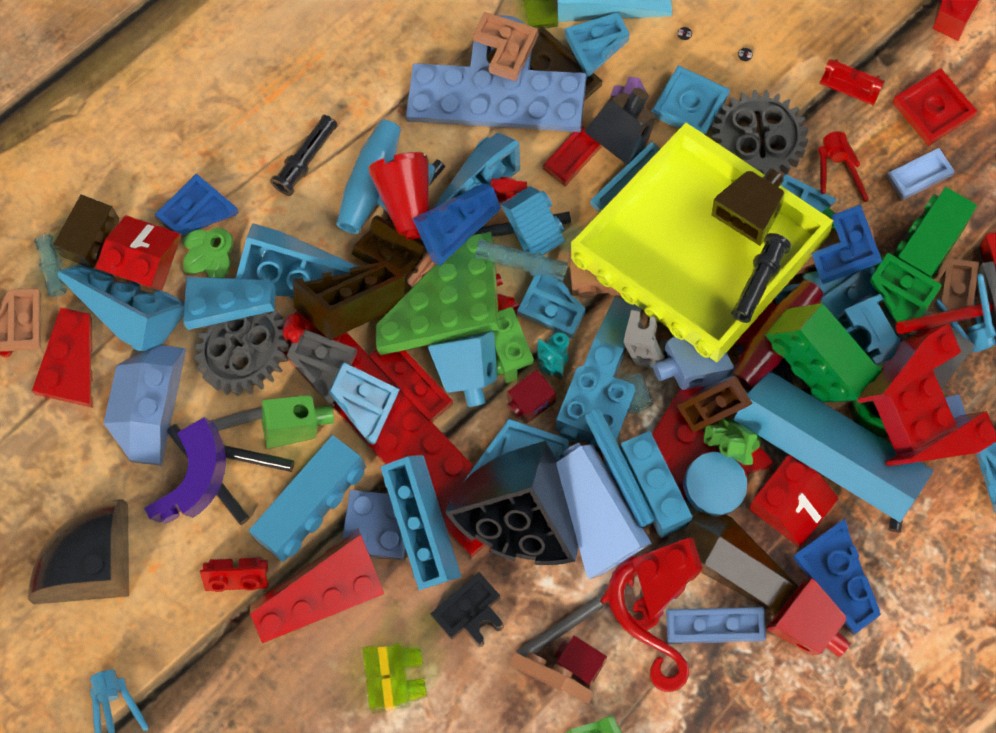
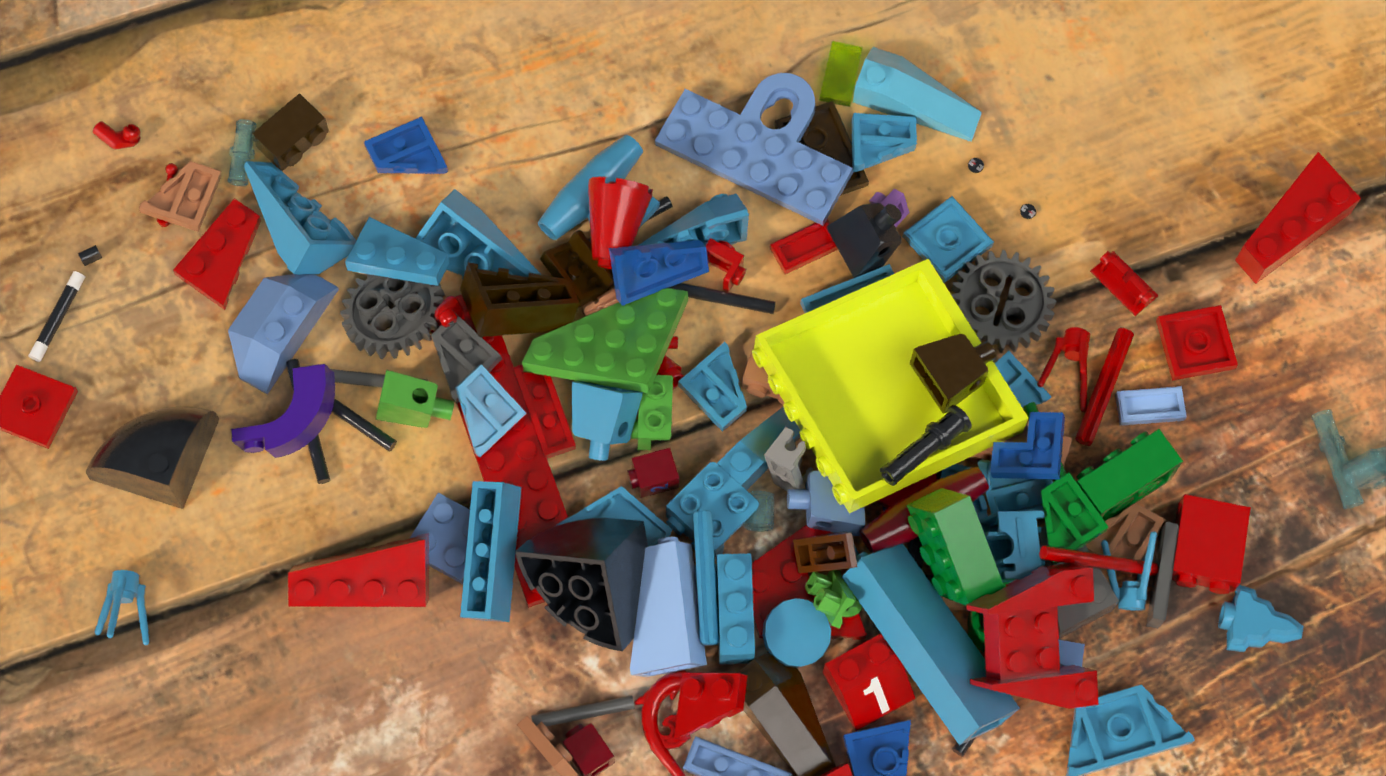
camera: 15 degrees right, 0 degrees up
(139, 252) = (332, 174): red slope -> none
(203, 254) = (395, 201): bright green plate -> none
(221, 576) = (279, 526): red hinge -> none
(297, 164) = (525, 146): black pin -> none
(308, 499) = (393, 484): dark azure brick -> none
(387, 677) = (395, 691): clear neon green hips -> none
(469, 610) = (502, 657): black plate -> none
(512, 42) = (791, 106): nougat plate -> none
(522, 260) = (713, 340): clear light blue pin -> none
(533, 221) = (732, 299): dark azure brick -> none
(553, 354) = (694, 440): teal hinge -> none
(875, 173) = (1104, 386): none -> red axle

